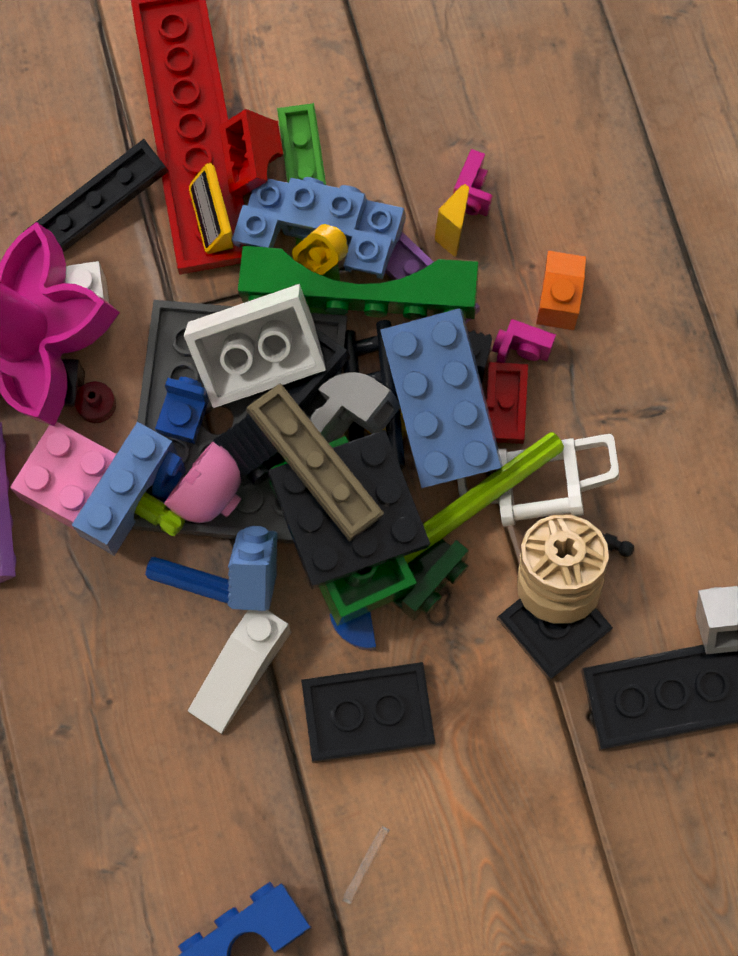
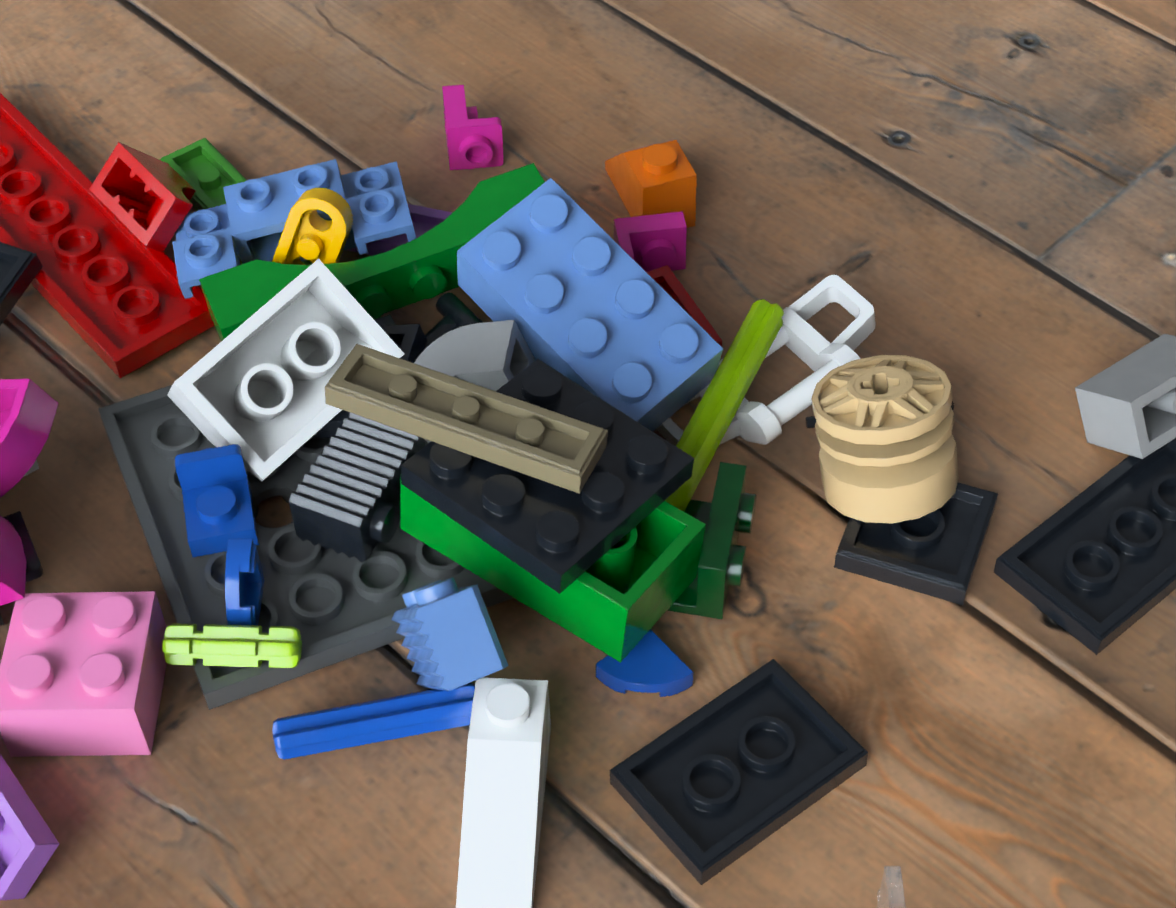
camera: 30 degrees left, 25 degrees down
(95, 402) = (73, 568): dark red tile -> none
(111, 506) = (173, 661): medium blue arch -> none
(207, 487) = (315, 564): bright pink cylinder -> none
(210, 211) = (130, 271): slope -> none
(451, 220) = (467, 149): yellow slope -> none

